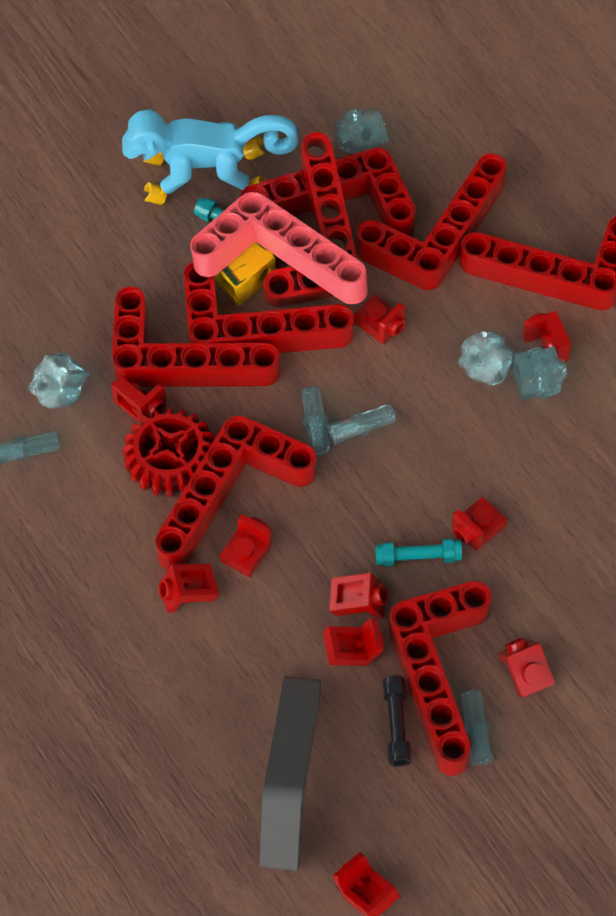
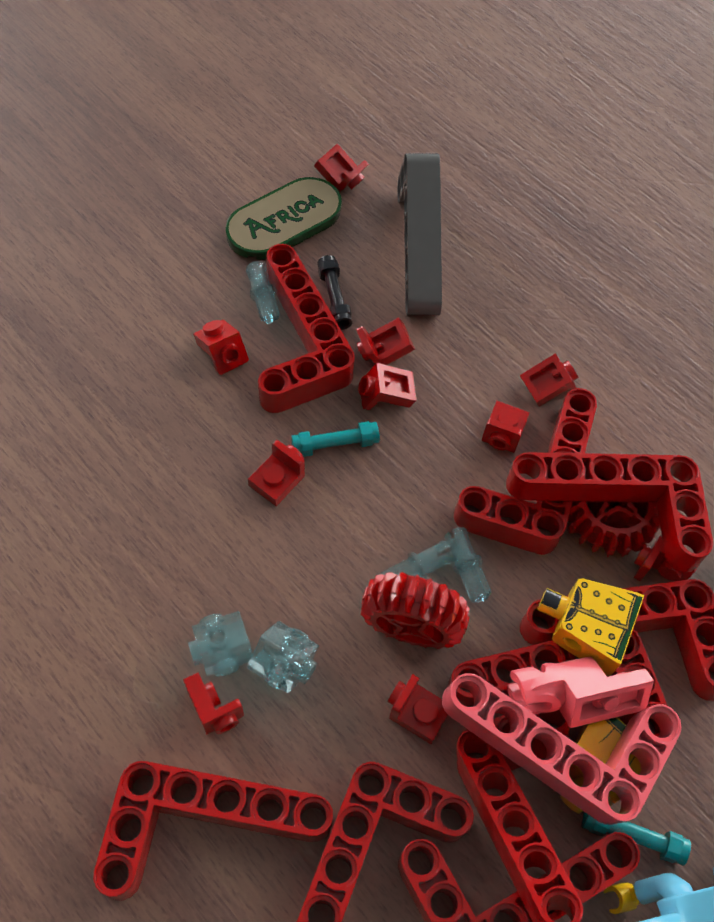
camera: 165 degrees right, 0 degrees up
(169, 437) = (623, 486): none -> red beam
(228, 333) = (593, 620): none -> yellow torso
(258, 288) = (580, 691): none -> coral plate
(374, 370) = (415, 610): none -> red gear
(442, 833) = (283, 217): none -> dark tan tile

